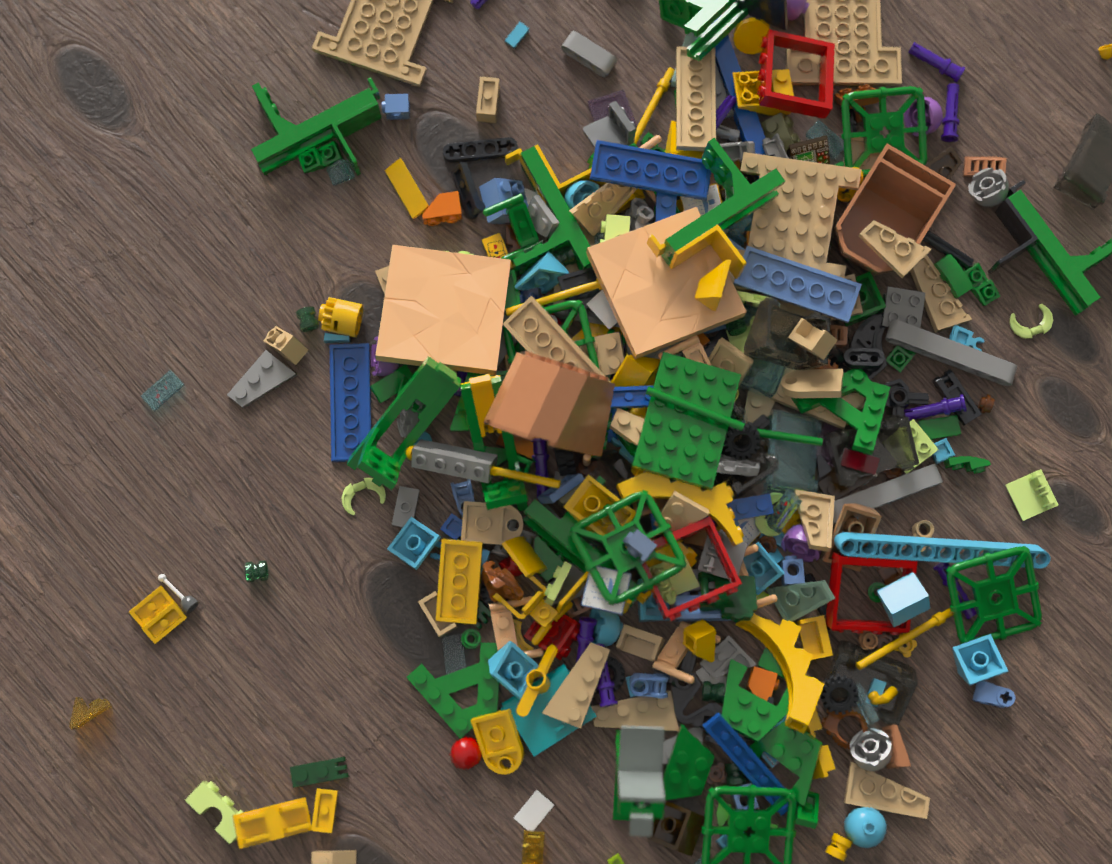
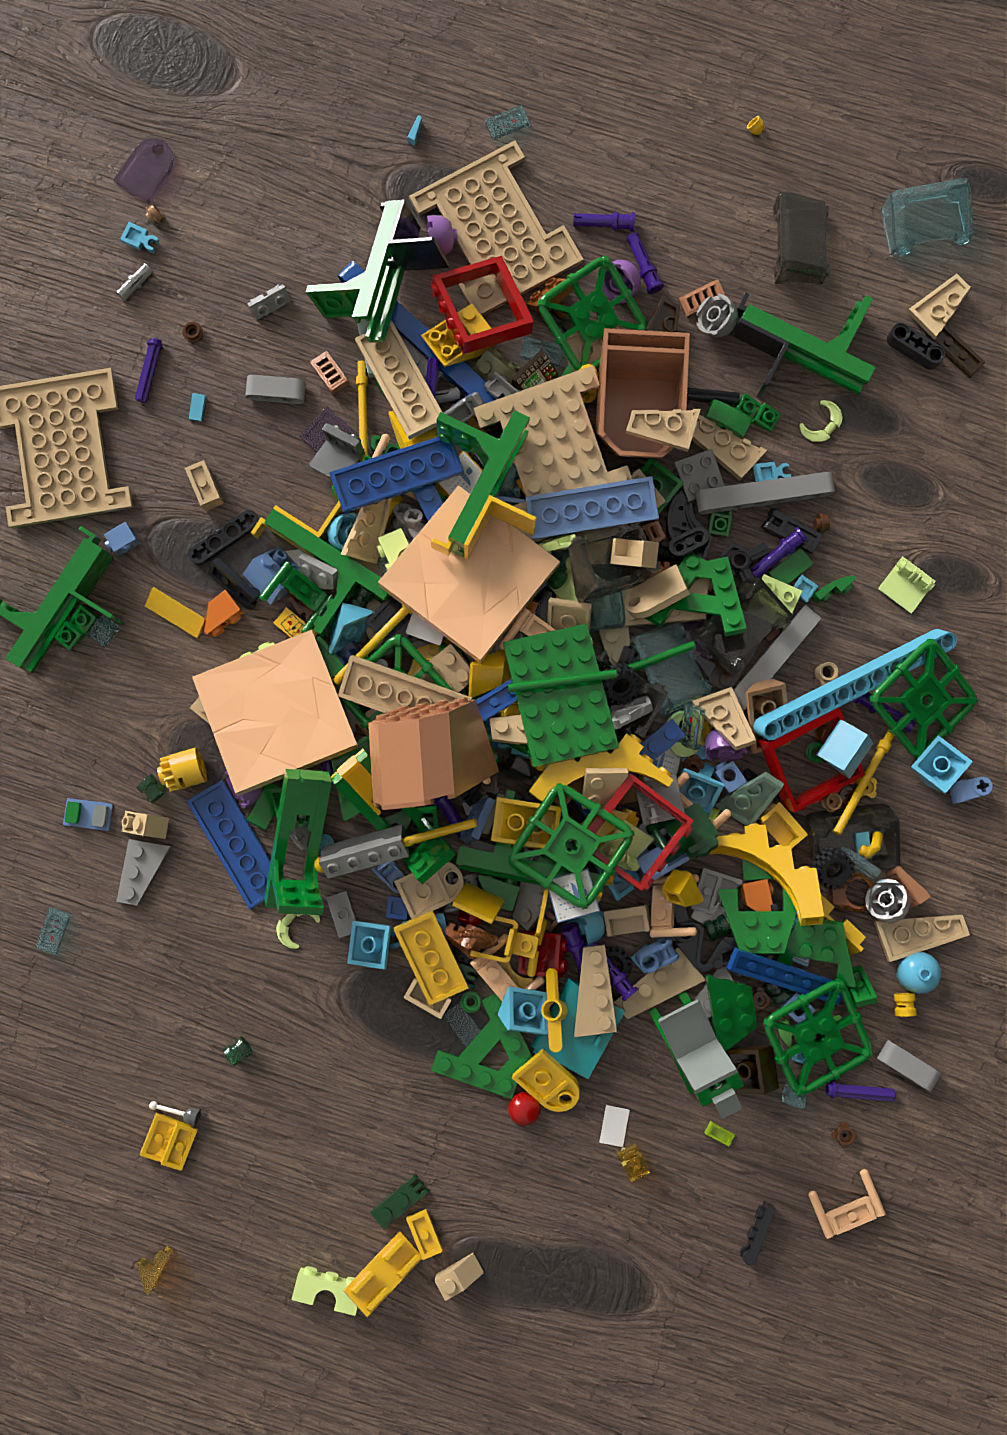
camera: 25 degrees left, 5 degrees up
(243, 312) = (88, 814): none -> piece
(334, 338) = (181, 795): medium azure piece -> none
(553, 590) = (523, 919): yellowish green wing -> none
(639, 545) = (582, 840): sand blue brick -> none
(645, 77) = (338, 385): none -> nougat slope
(712, 285) = (515, 555): yellow slope -> none
(749, 35) = (416, 289): yellow tile -> none
(860, 461) = (737, 642): dark red sticker -> none

